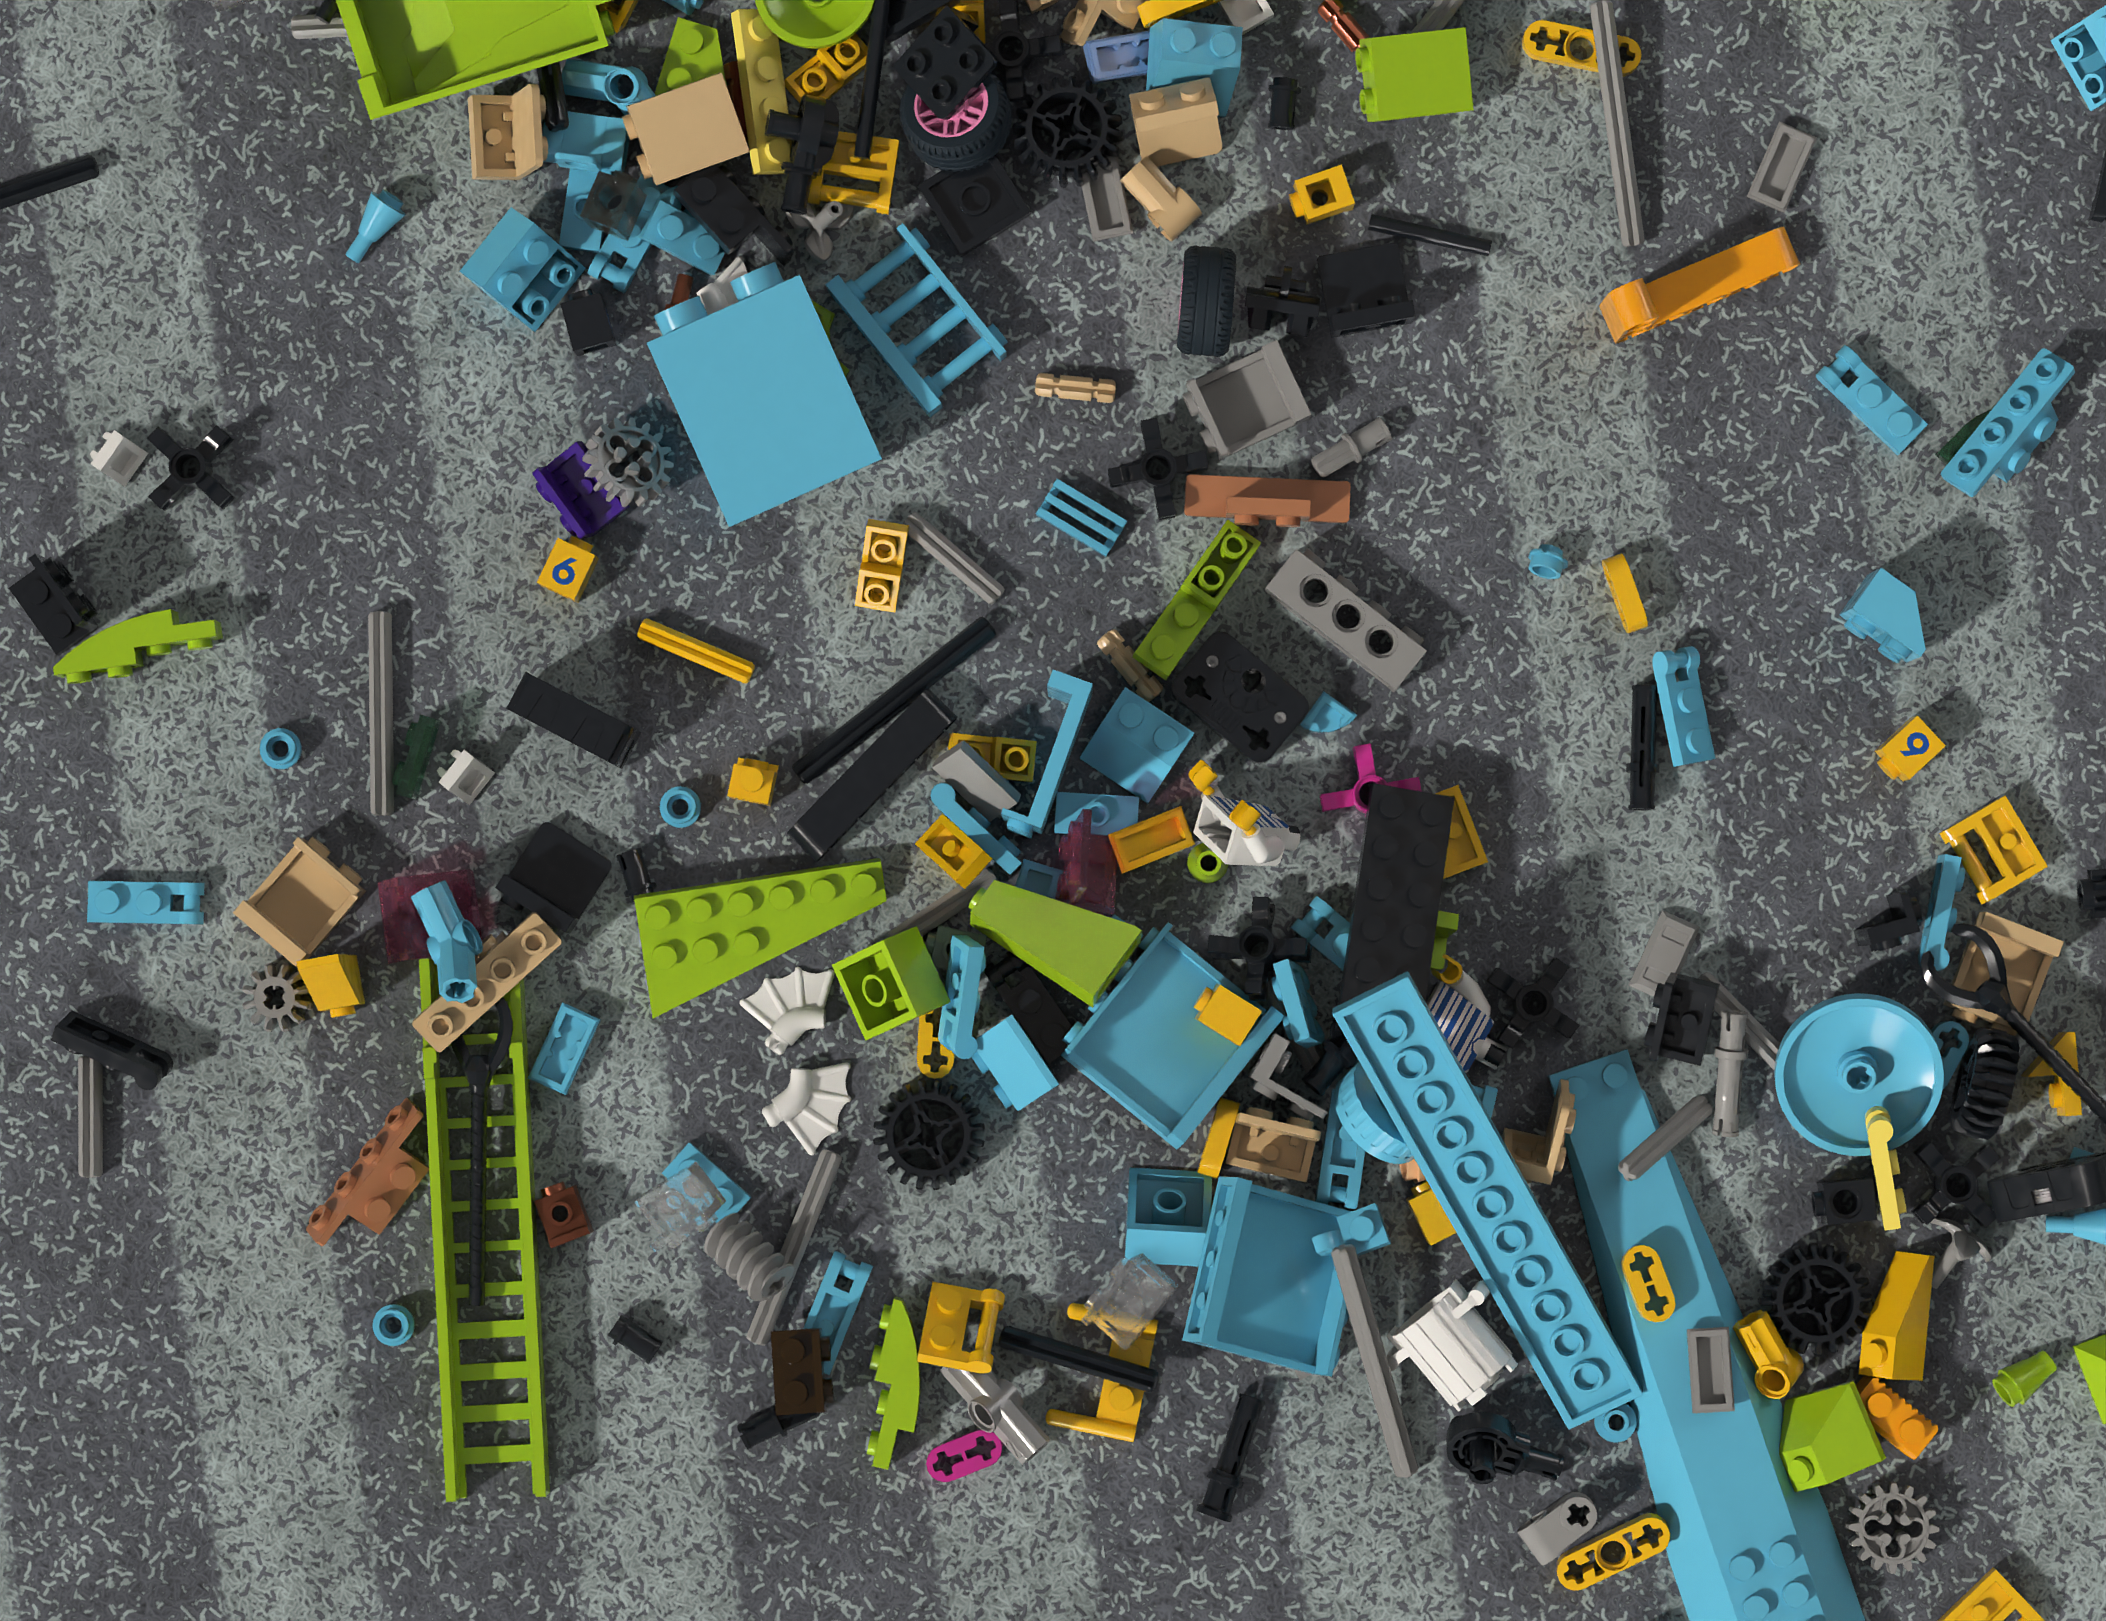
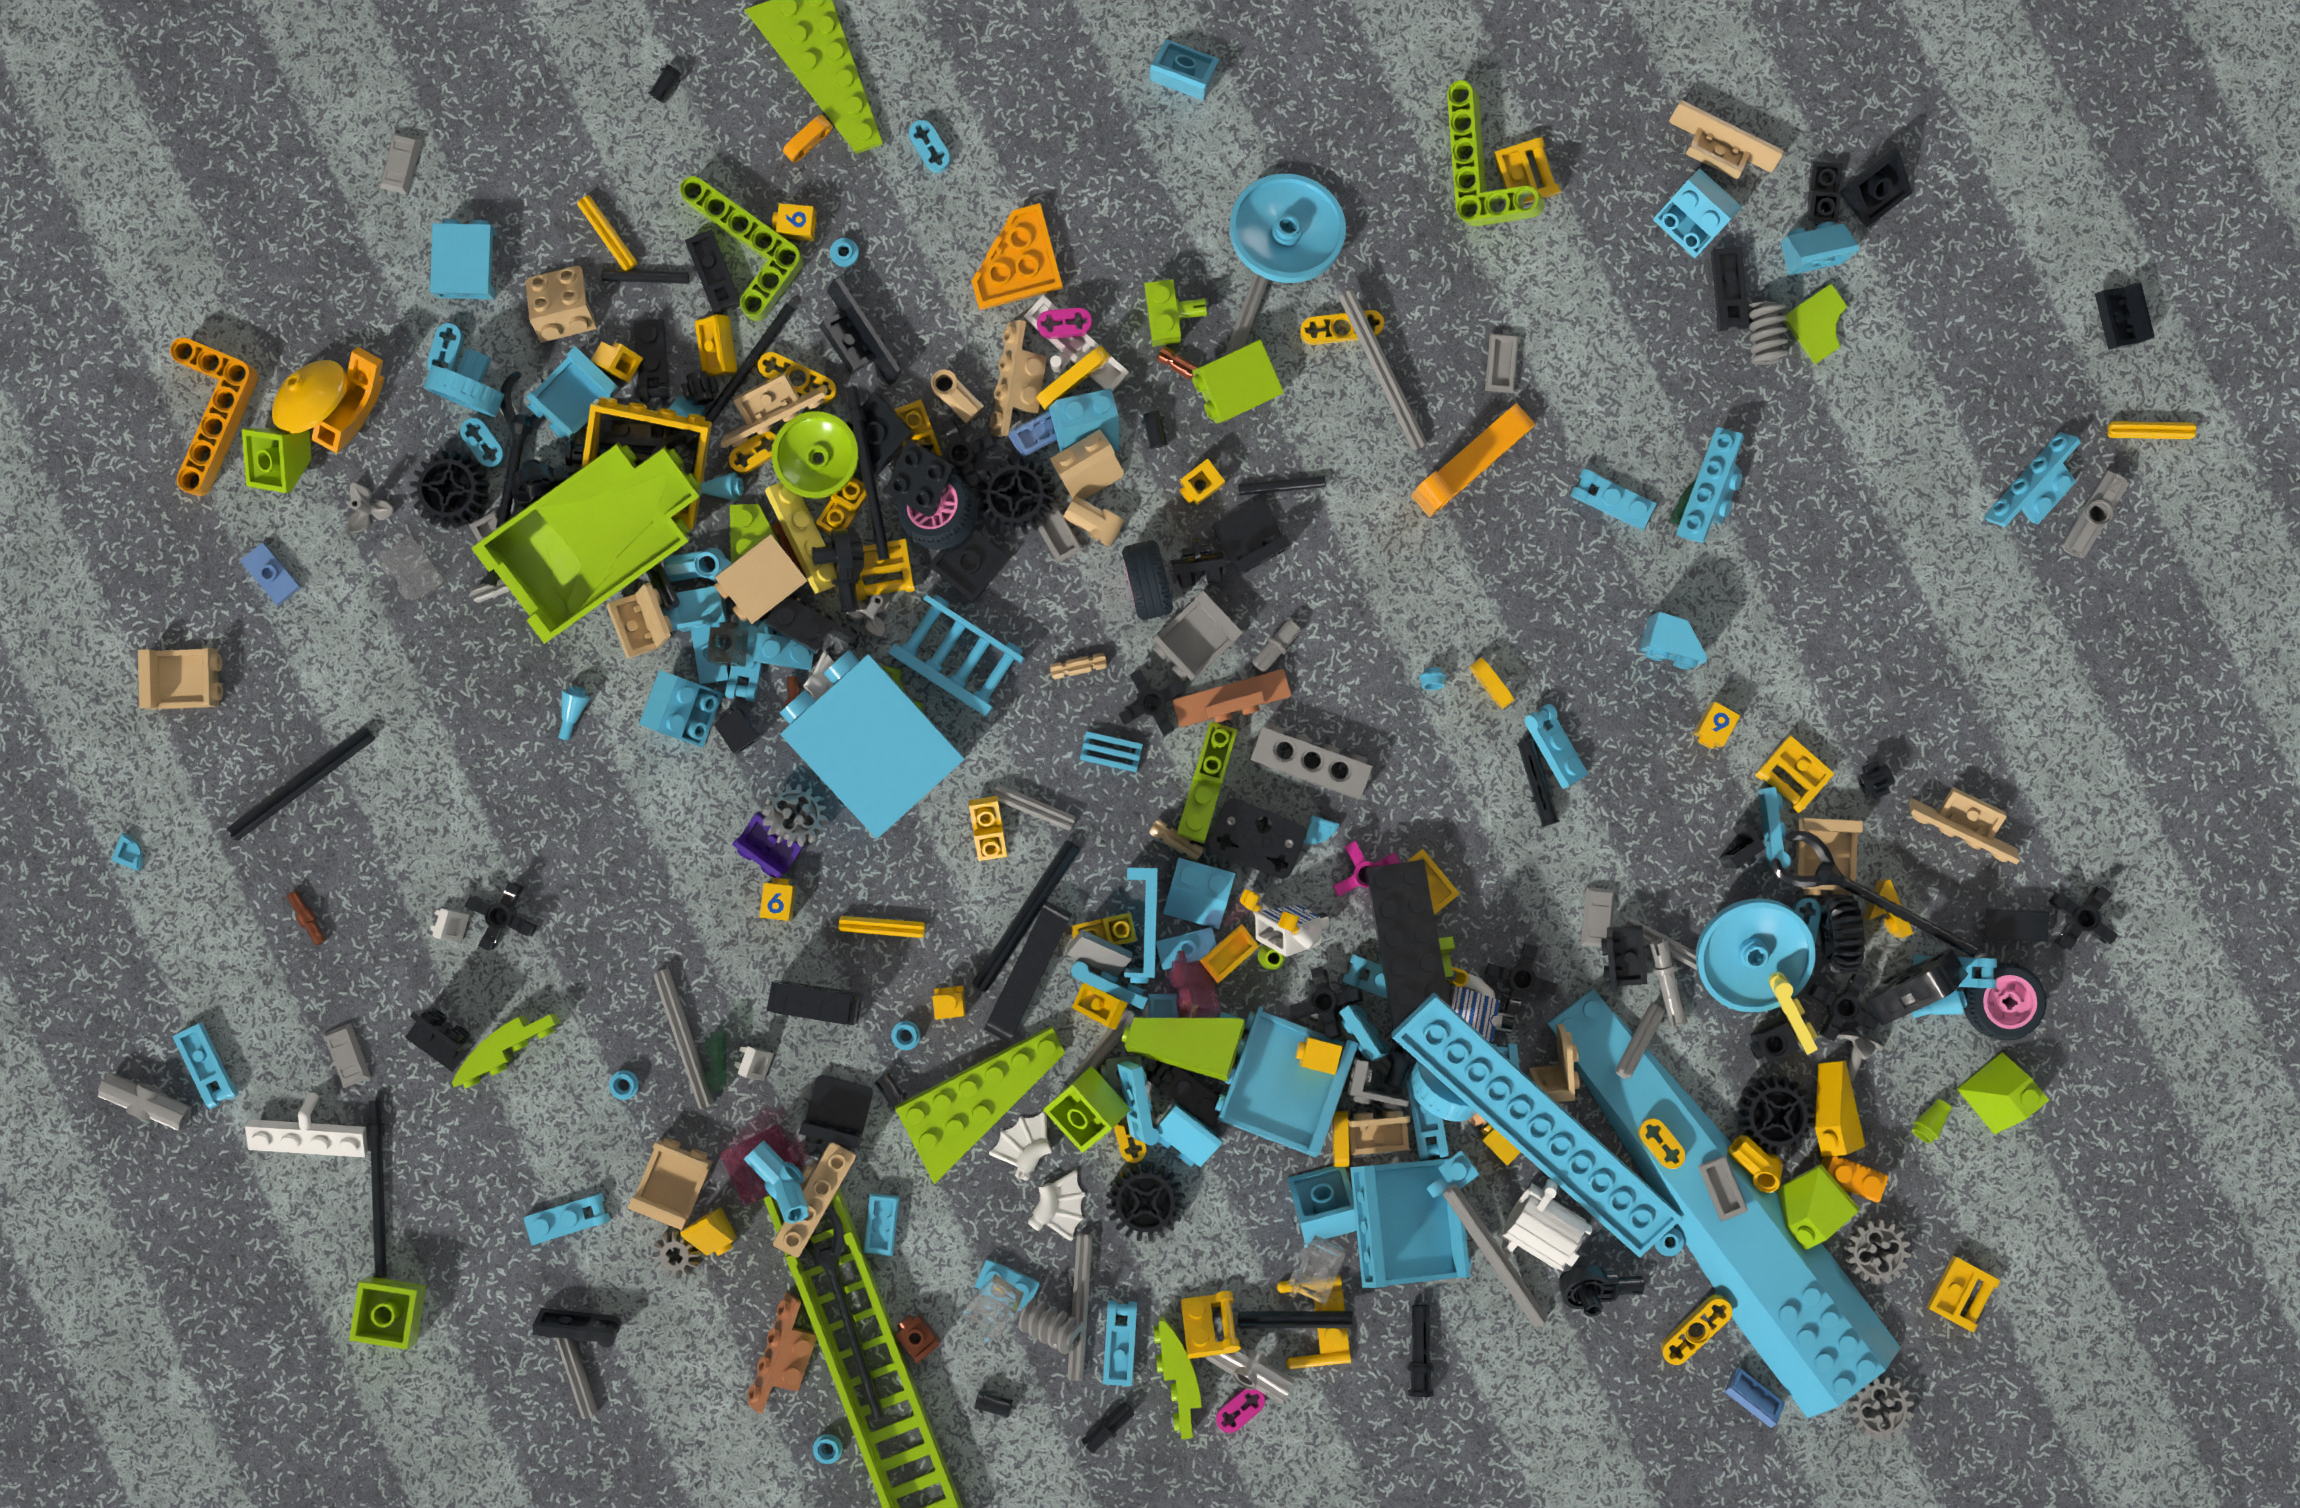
camera: 20 degrees left, 0 degrees up
(799, 1371) = (1111, 1391): dark brown bracket -> none
(1552, 1531) = (1652, 1327): light grey piece -> none

